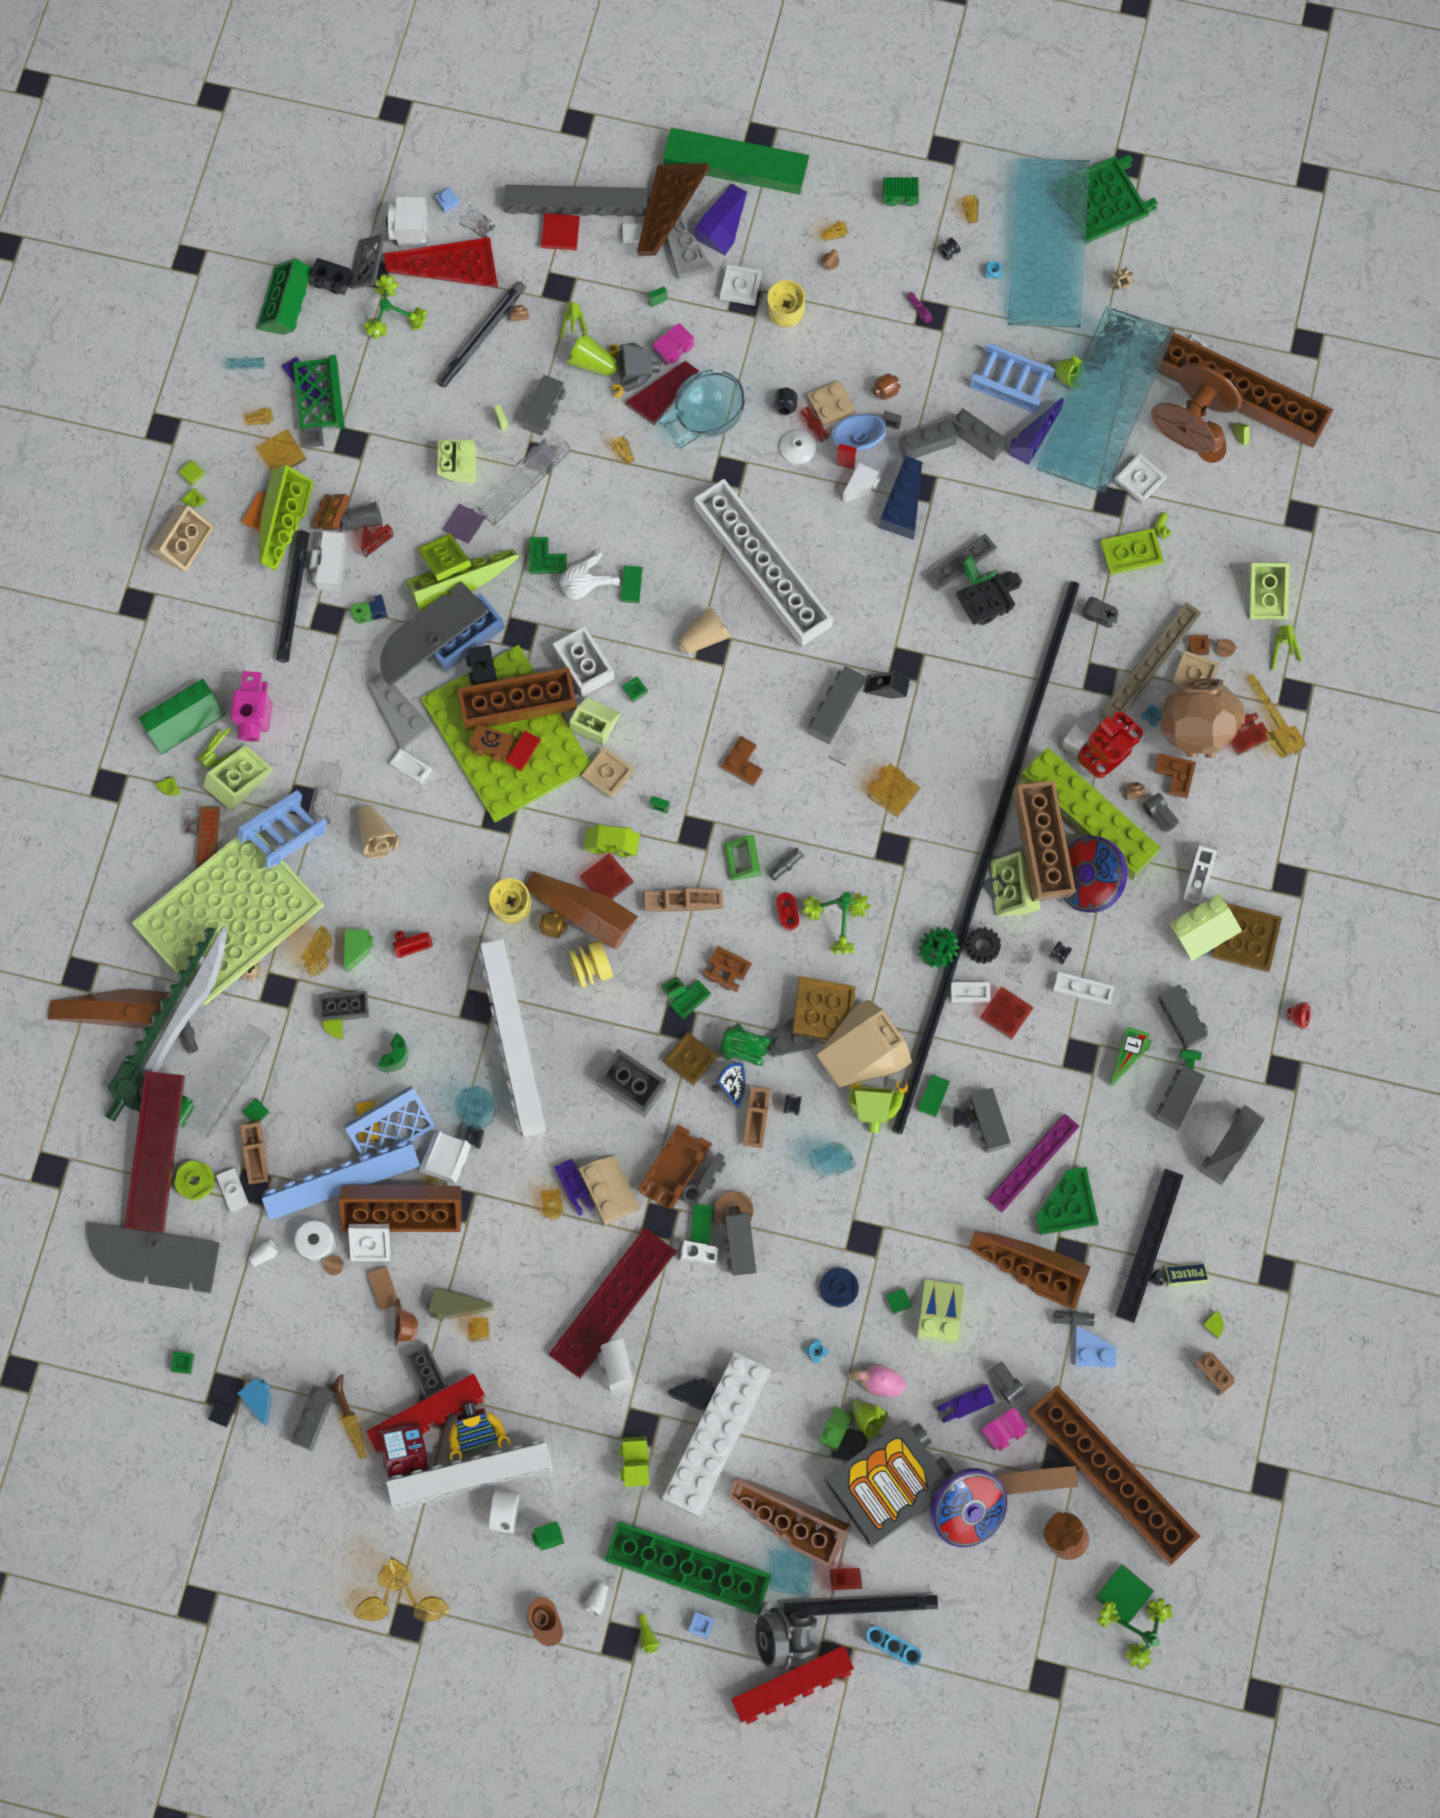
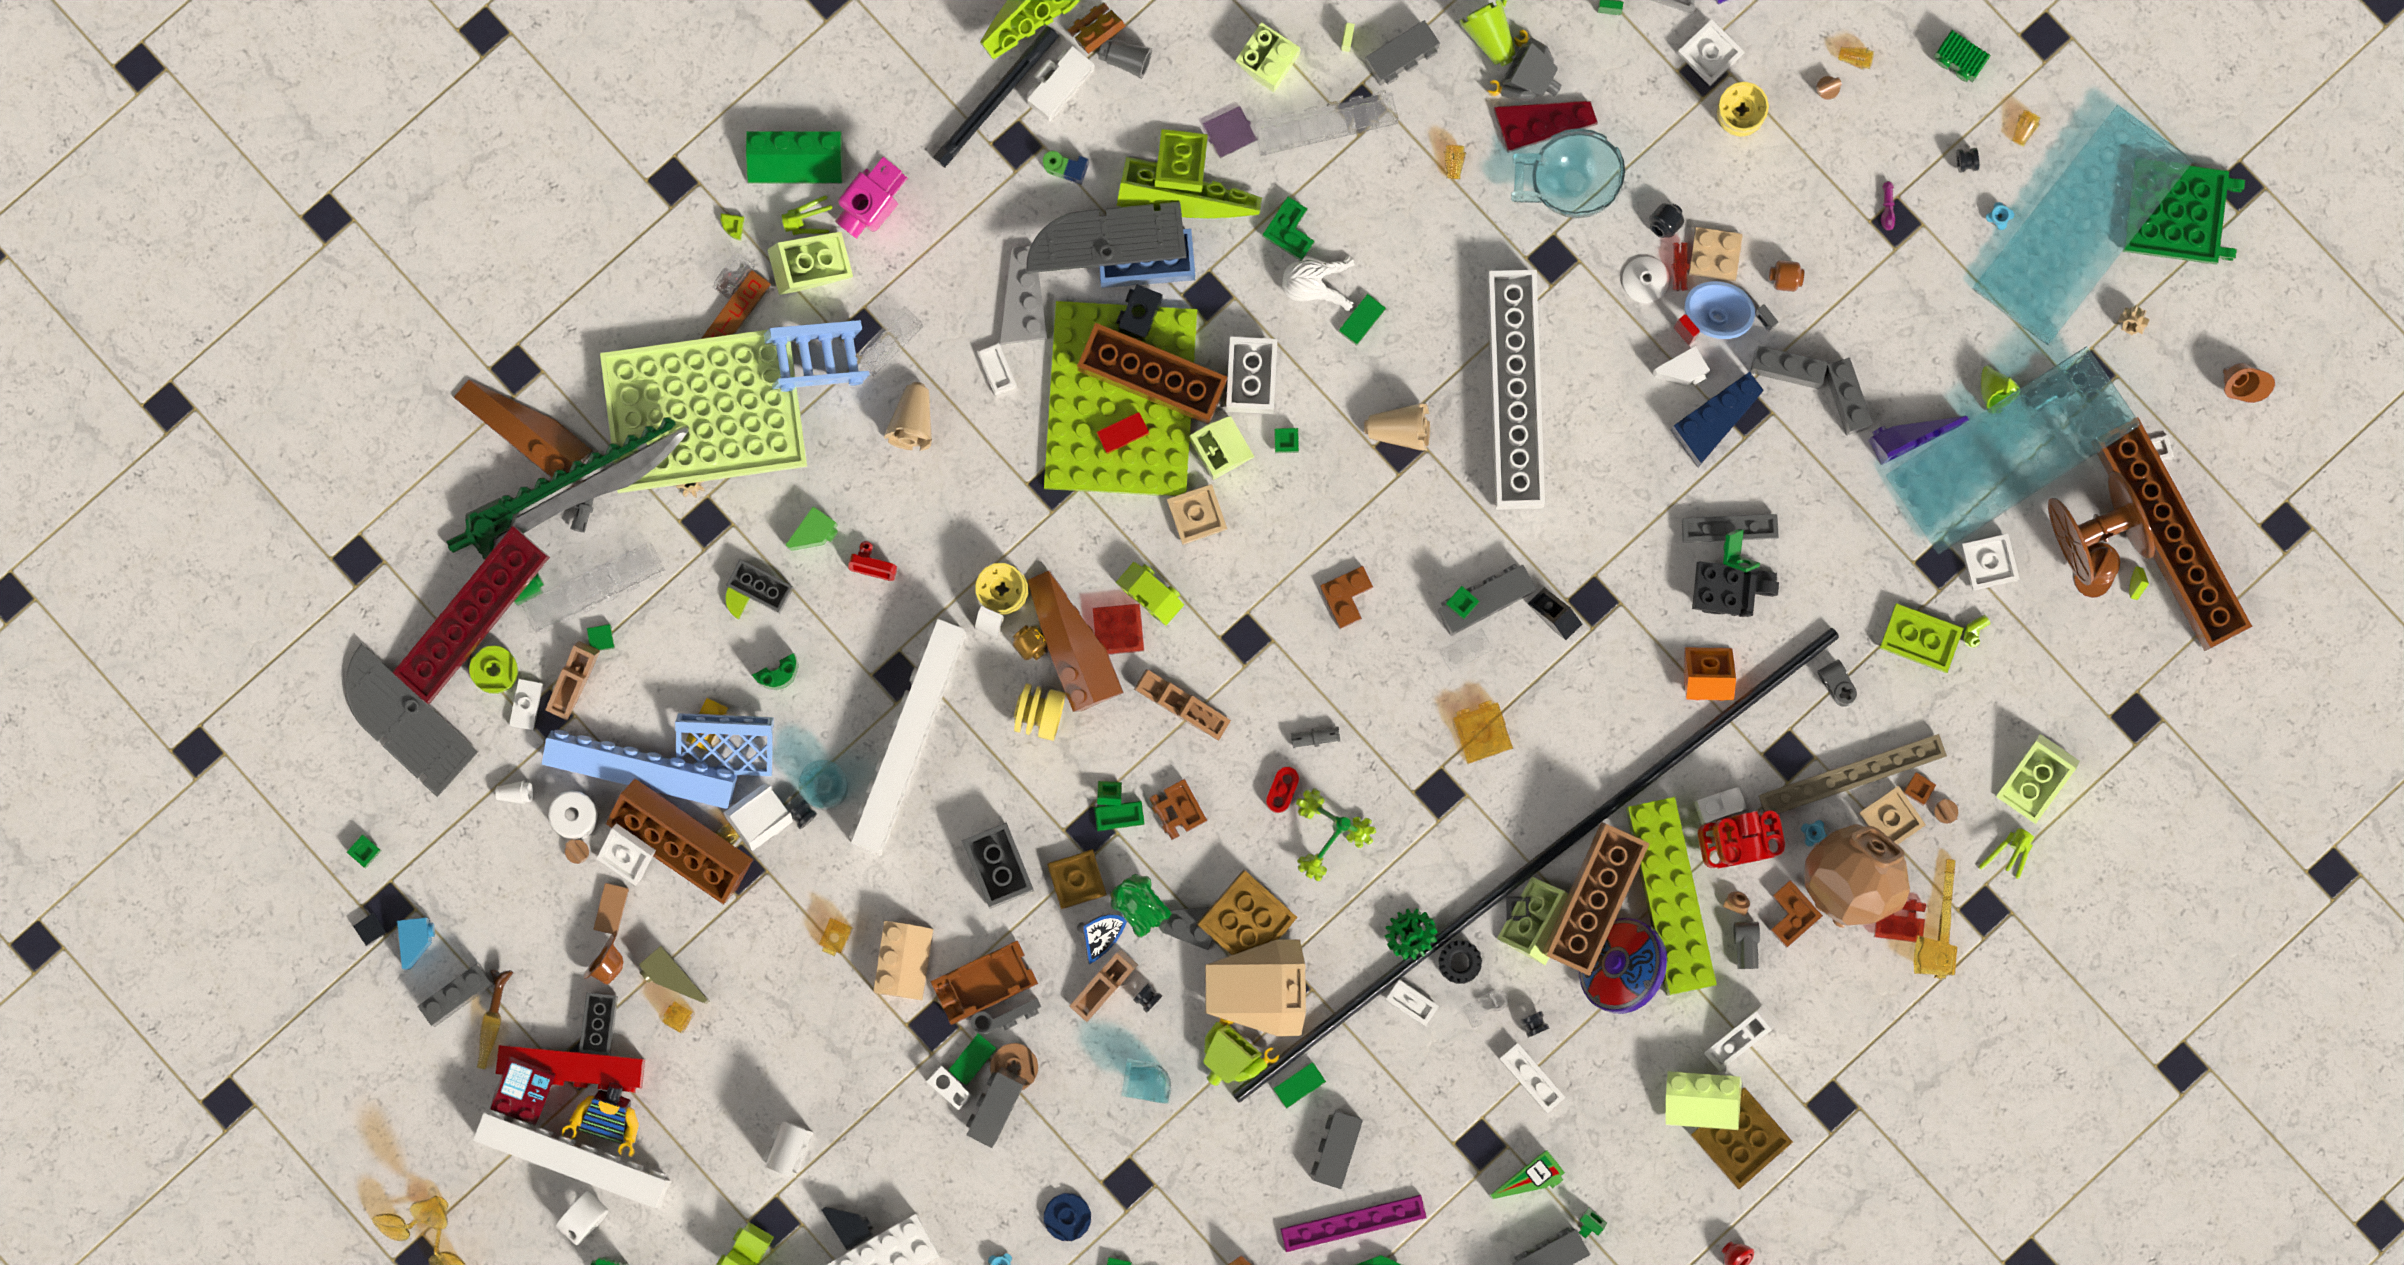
camera: 30 degrees right, 10 degrees up
(315, 957) = (762, 516): clear yellow plate -> none
(372, 542) = (1115, 89): clear red slope -> none
(491, 743) = (1093, 403): dark orange brick -> none
(516, 927) = (989, 622): none -> white slope
(573, 1184) = (870, 931): dark purple hinge -> none
(612, 1303) = (829, 1079): dark red plate -> none
(659, 804) = (1227, 585): green tile -> none
(673, 344) = (1590, 74): dark pink brick -> none
(755, 870) = (1287, 704): bright green tile -> none
(823, 713) = (1462, 602): none -> green plate
(961, 1117) = (1311, 1127): black wheel -> none
(1006, 1013) = (1434, 1049): clear red plate -> none
(1012, 395) = (1907, 357): light blue fence -> none
(1014, 659) = (1709, 674): none -> orange slope
(1183, 1016) = (1614, 1176): dark grey brick -> none
(1220, 271) = (2247, 383): none -> dark orange piece

